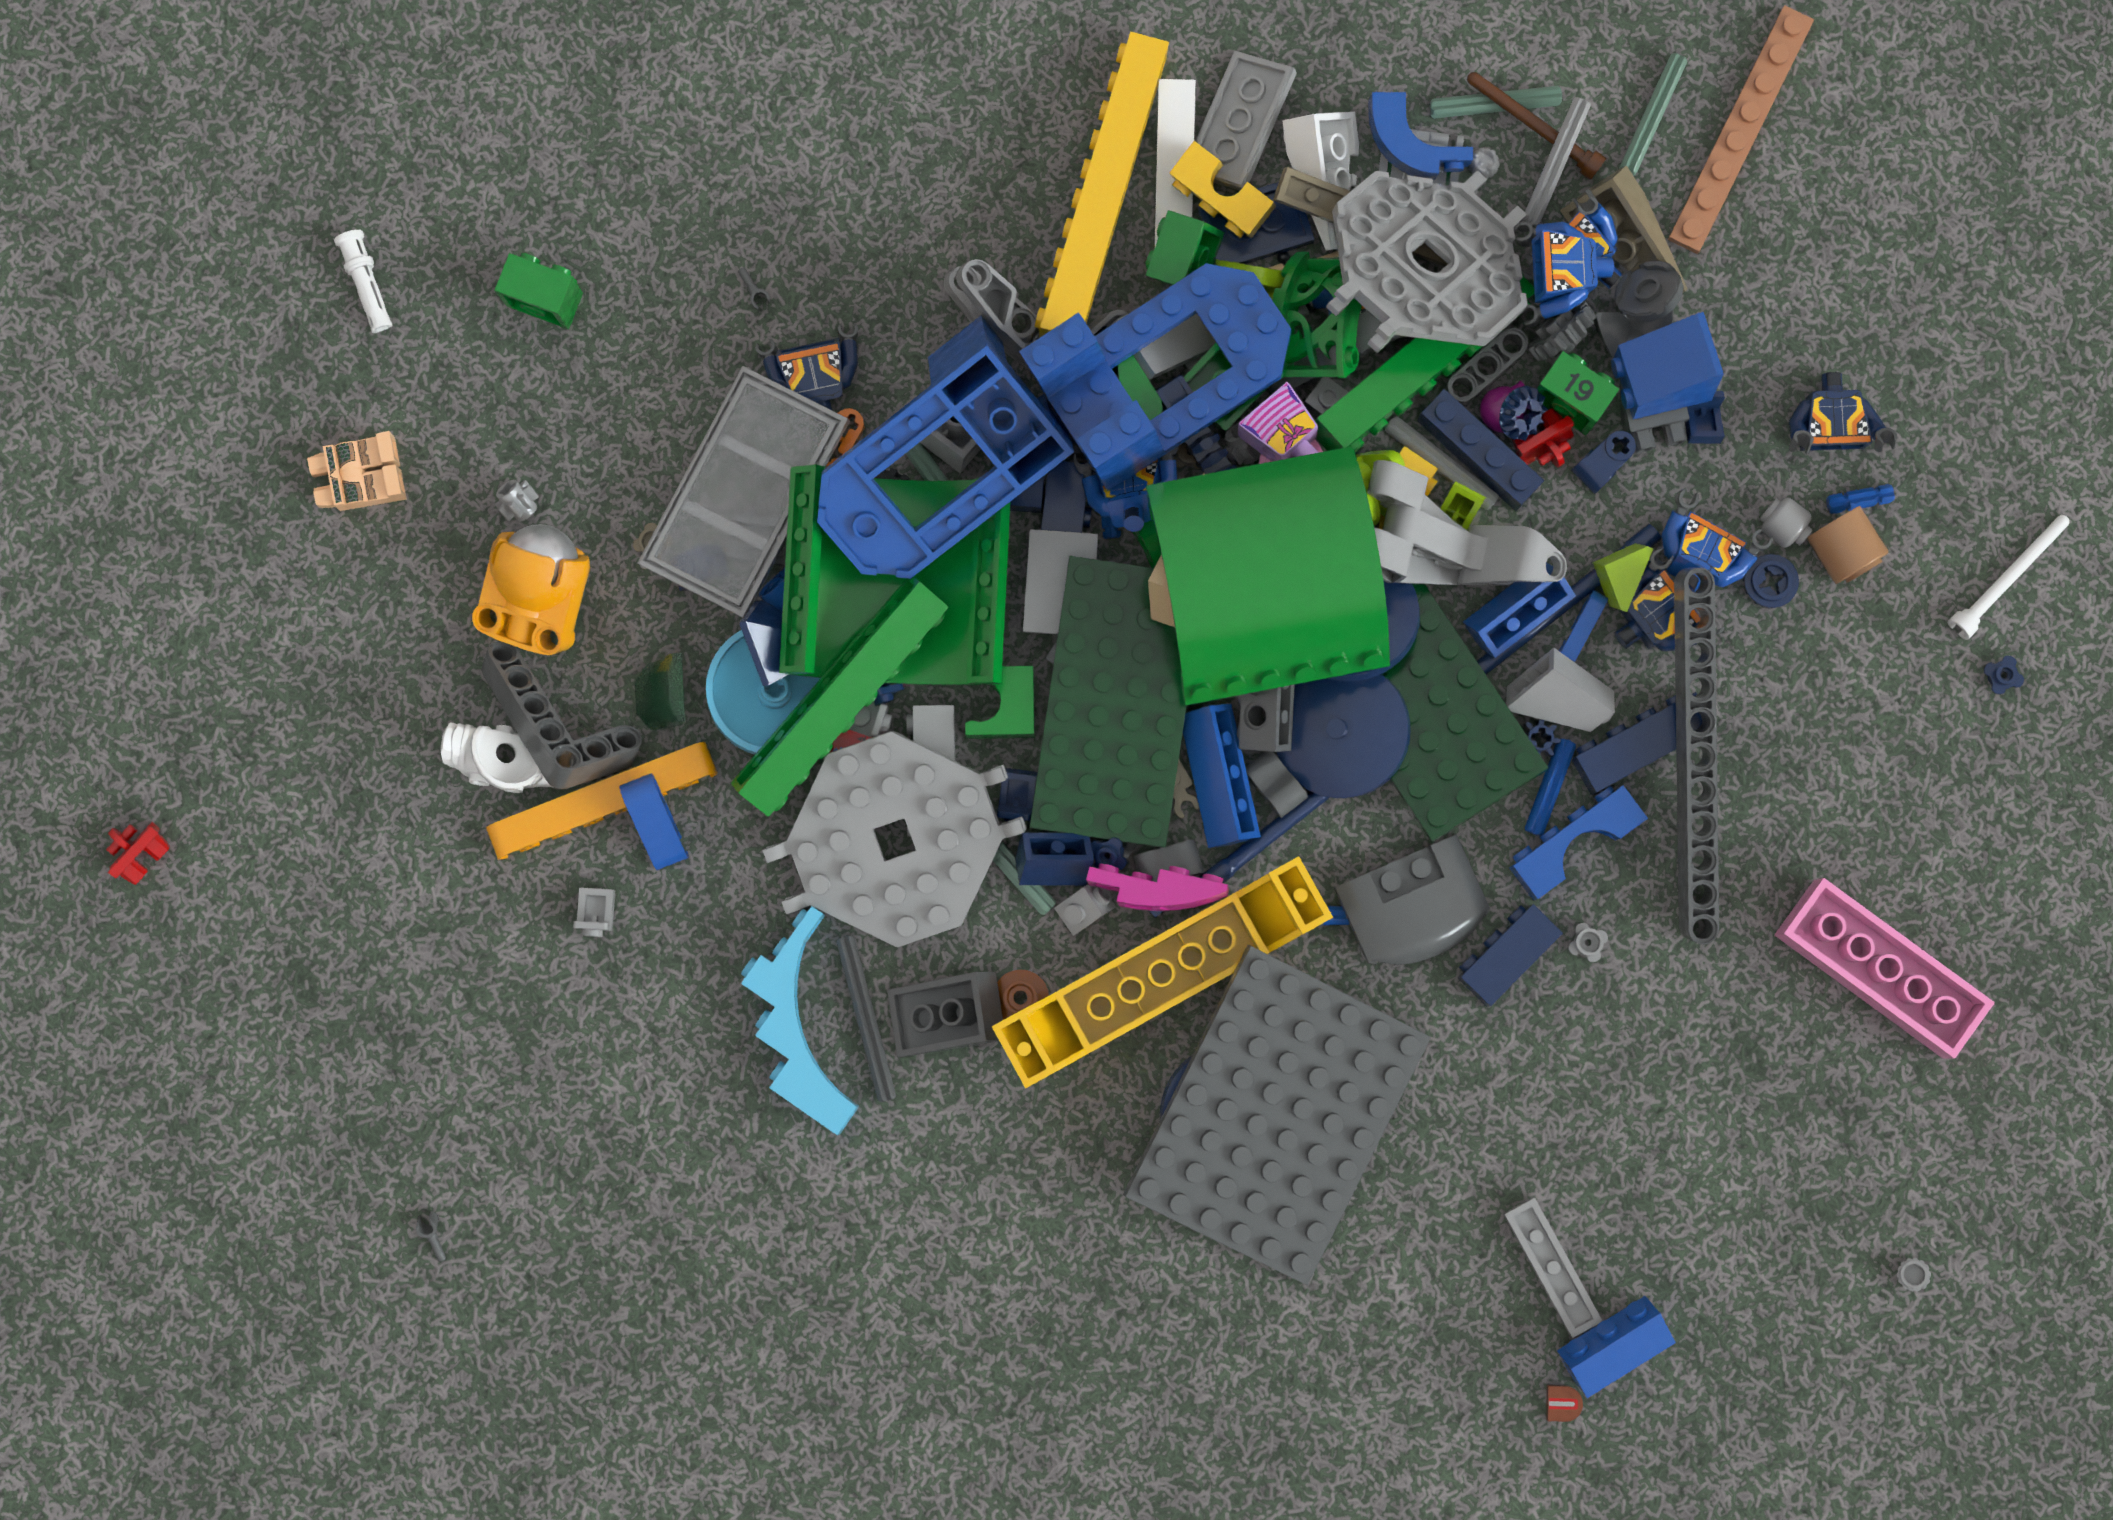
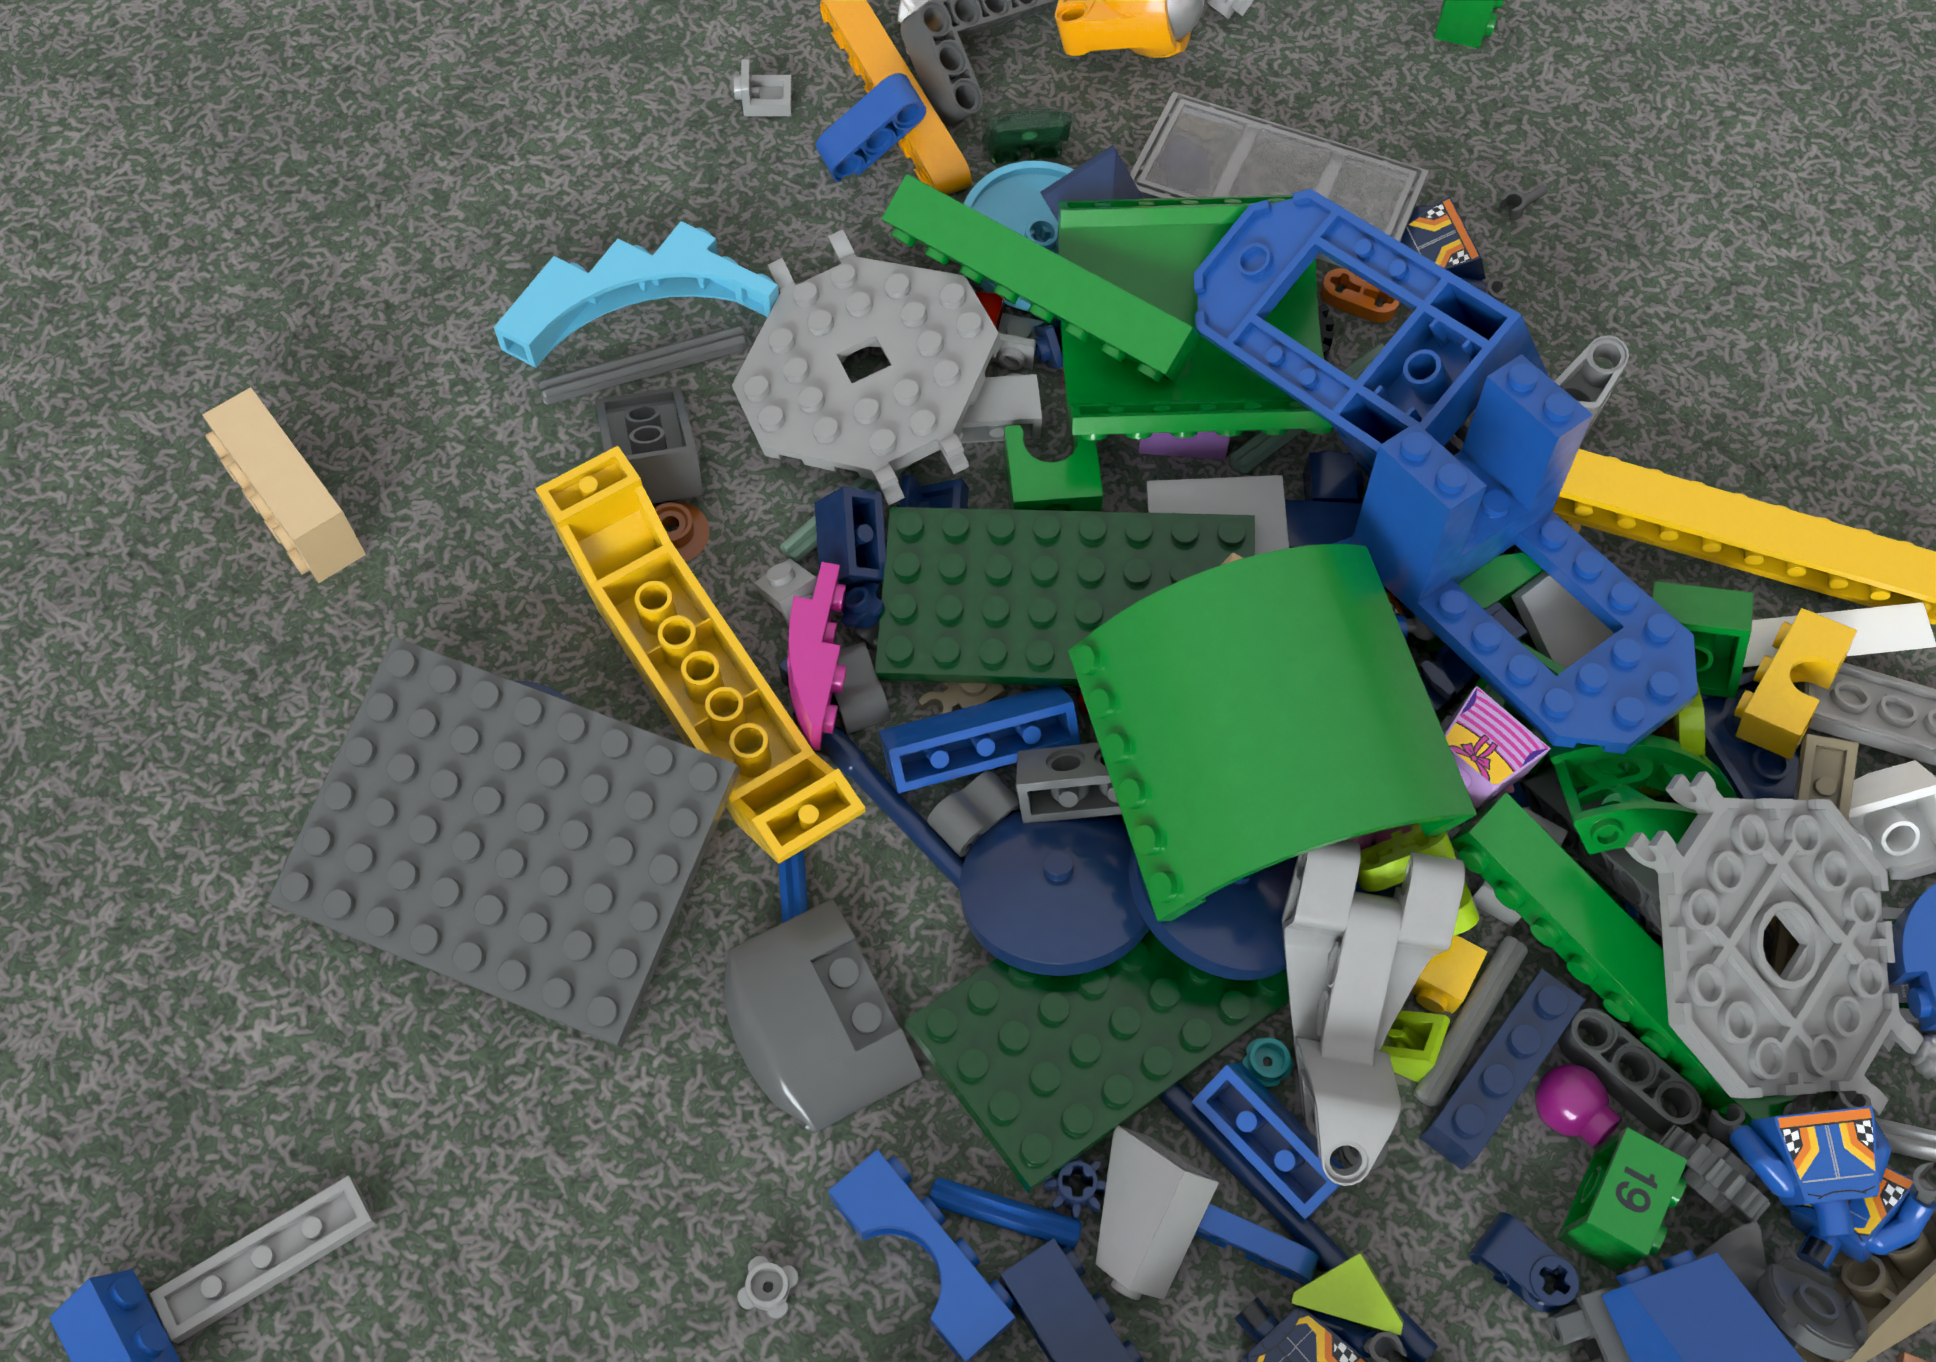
camera: 80 degrees right, 20 degrees down
(976, 1293) = (282, 486): none -> tan brick
(1463, 594) = (1276, 1052): none -> teal plate
(1508, 954) = (744, 1158): dark blue brick -> none
(1515, 405) = (1586, 1098): dark blue gear -> none
(1549, 443) = (1535, 1170): red hips -> none
(1563, 1403) = (51, 1285): copper tile -> none

